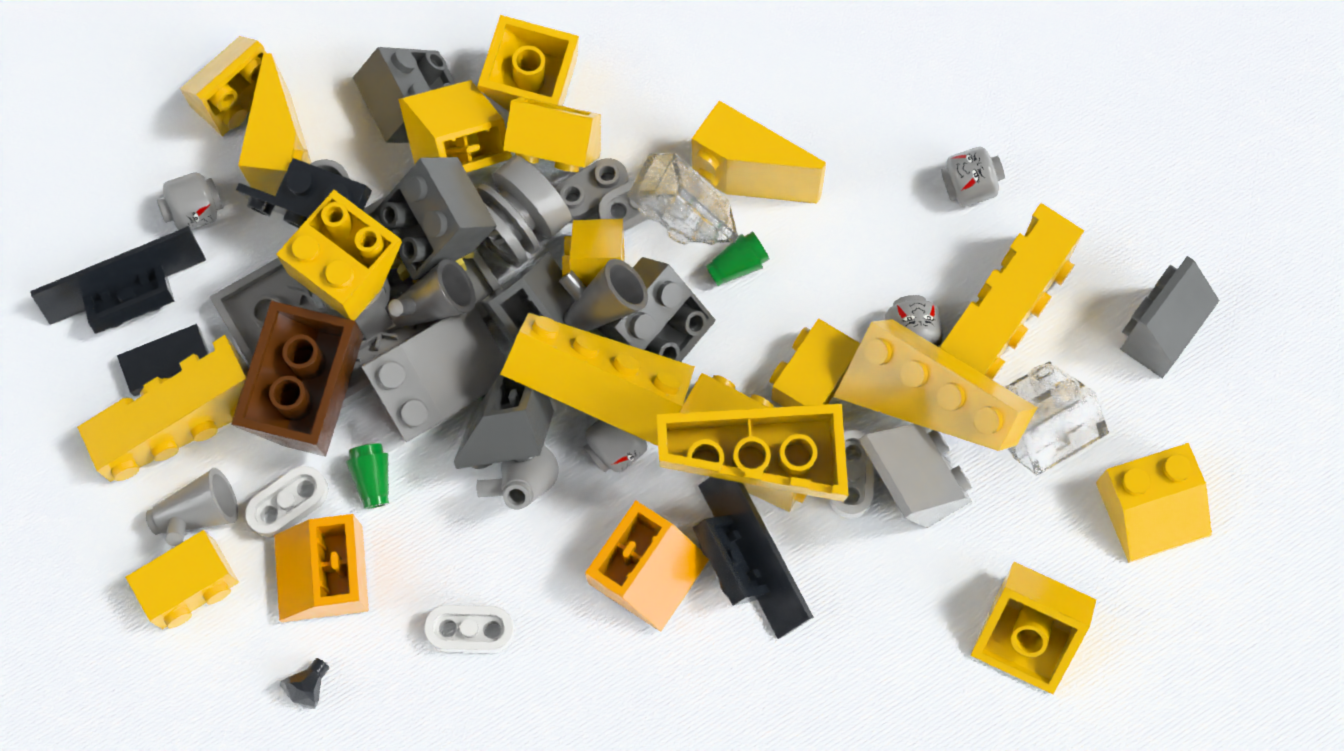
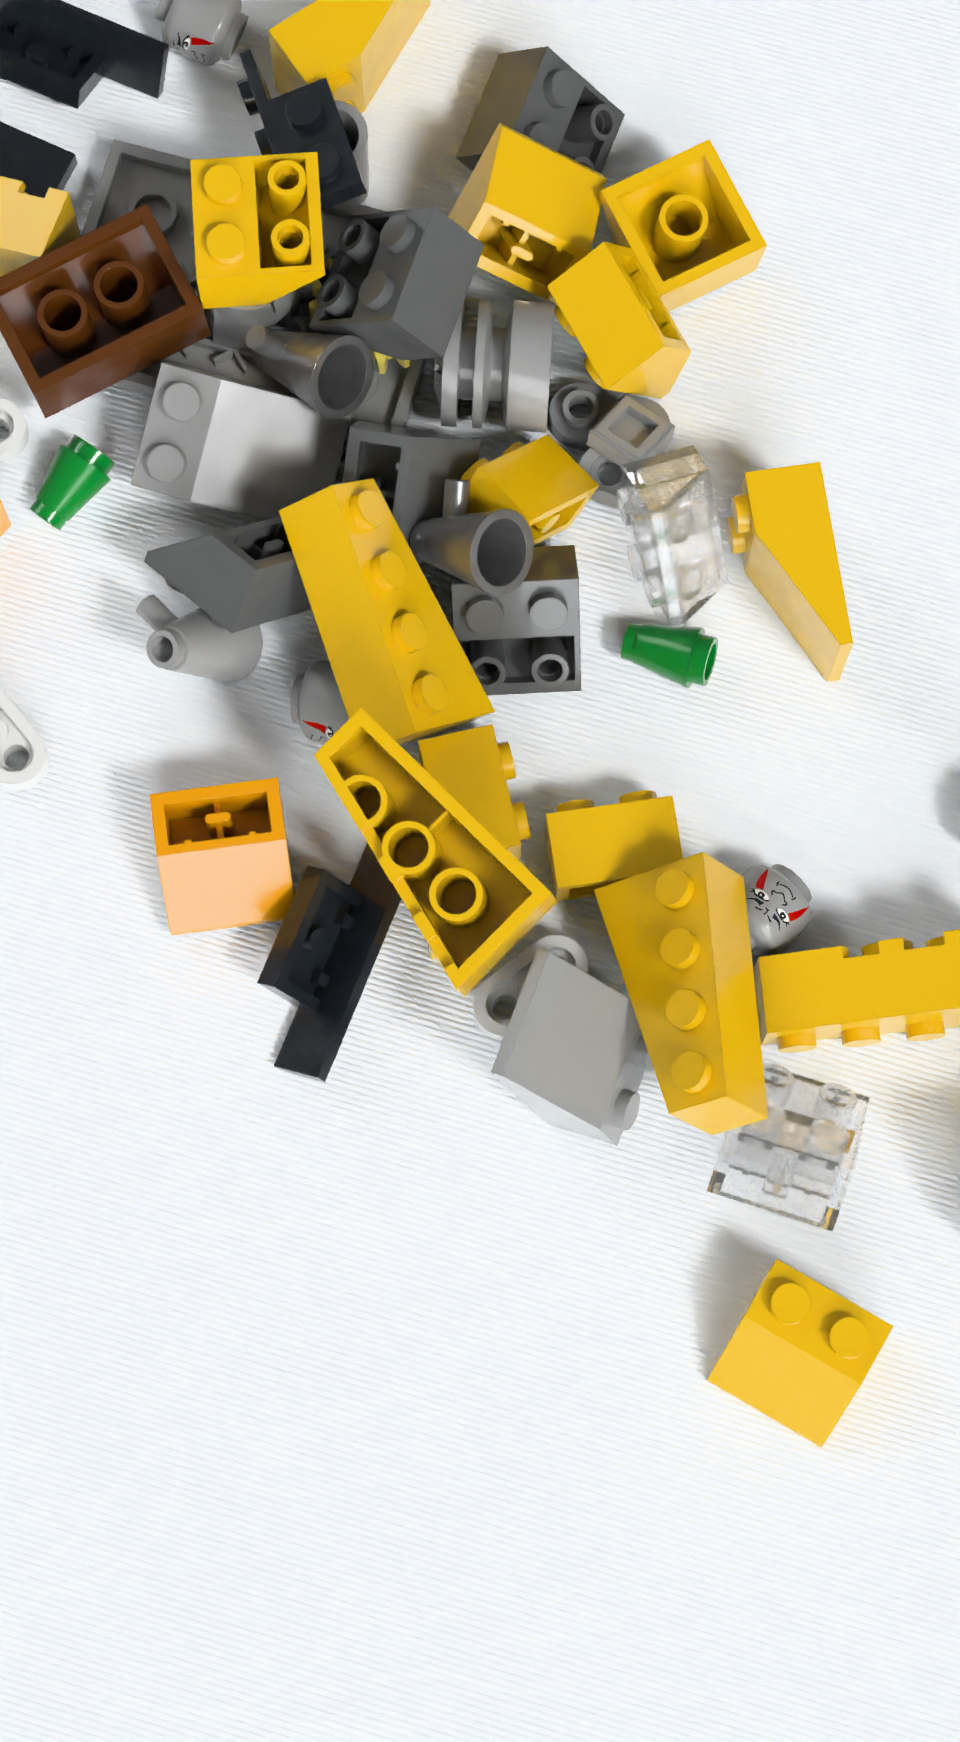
camera: 45 degrees right, 5 degrees up
(611, 180) = (630, 432): none -> light grey tile
(1034, 627) = (529, 1330): yellow slope -> none

